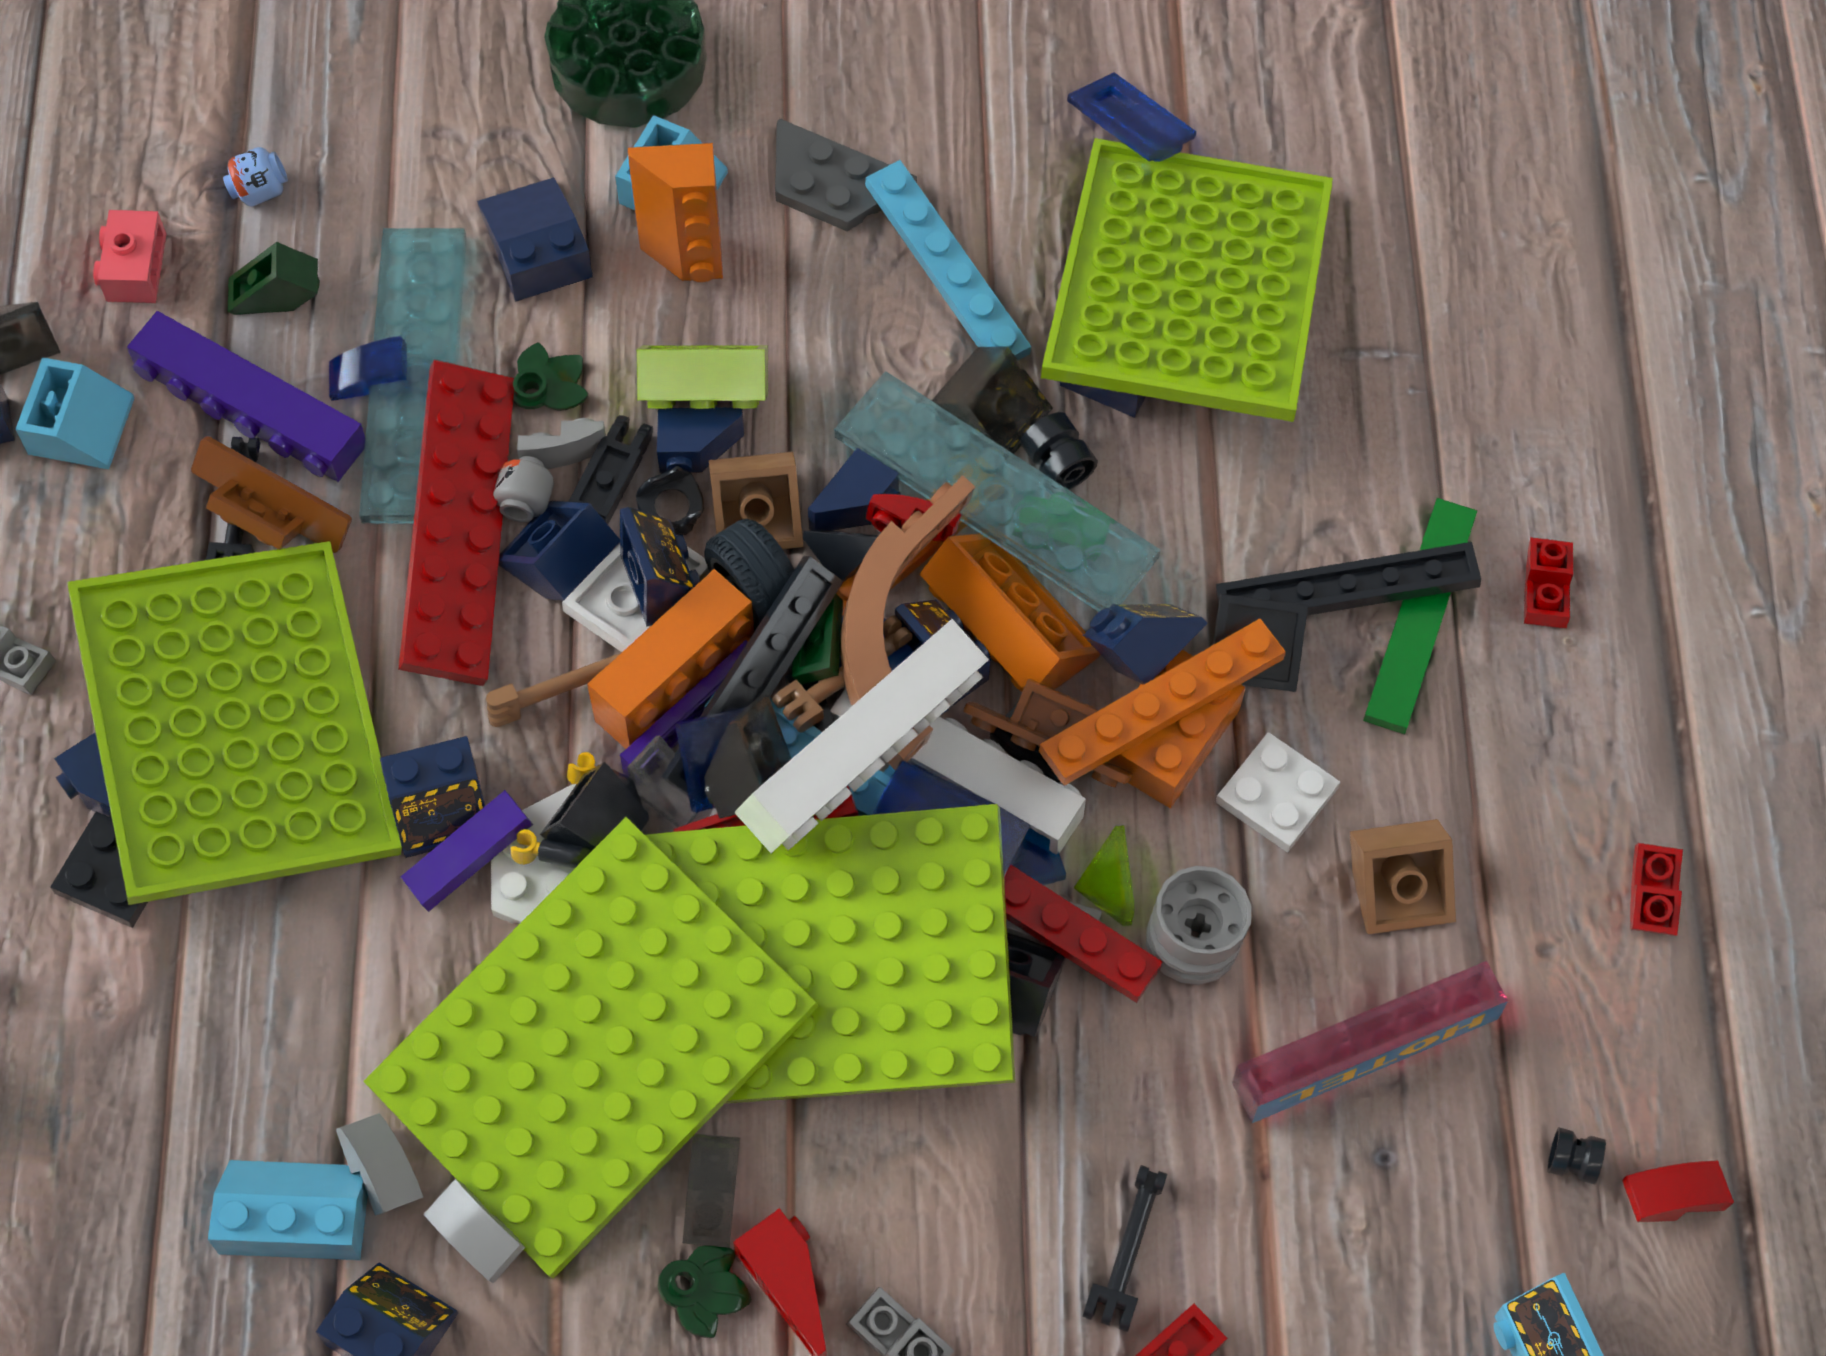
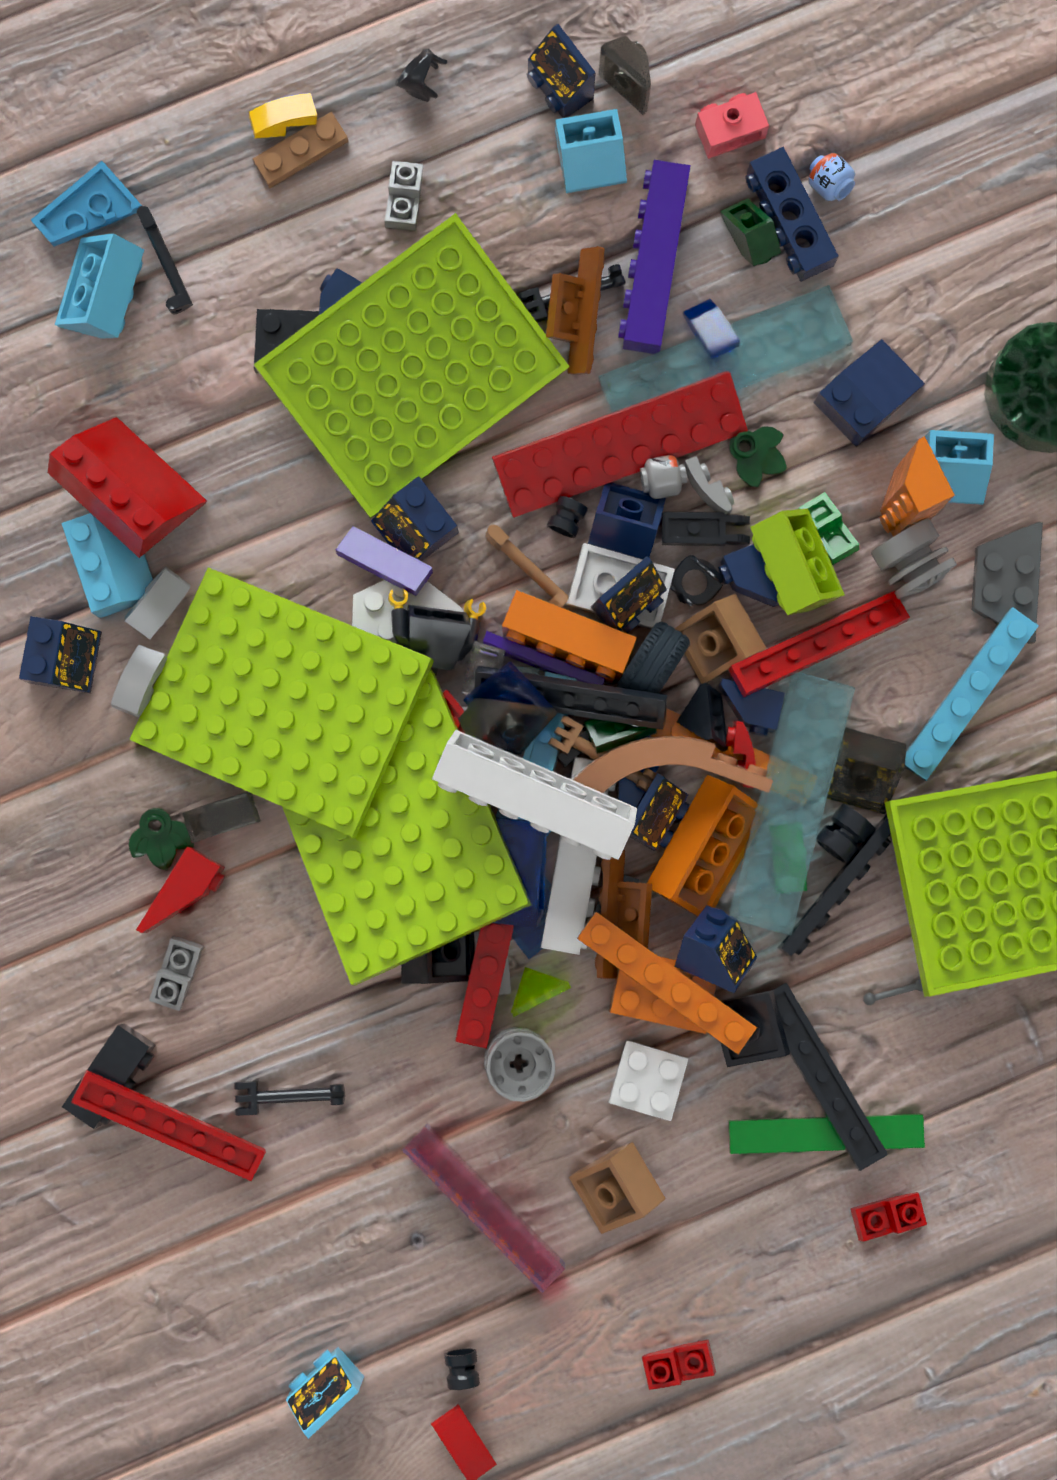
camera: 70 degrees right, 20 degrees up
(198, 1142) = (124, 484): none -> red slope
(259, 222) = (779, 170): none -> dark blue brick
(516, 612) = (568, 515): none -> black wheel
(664, 330) = (832, 531): none -> slope
(760, 253) = (913, 558): none -> light grey wheel
(814, 392) = (818, 643): none -> red plate
(1121, 486) = (837, 890): none -> black plate
(1276, 447) = (870, 998): none -> dark grey hinge

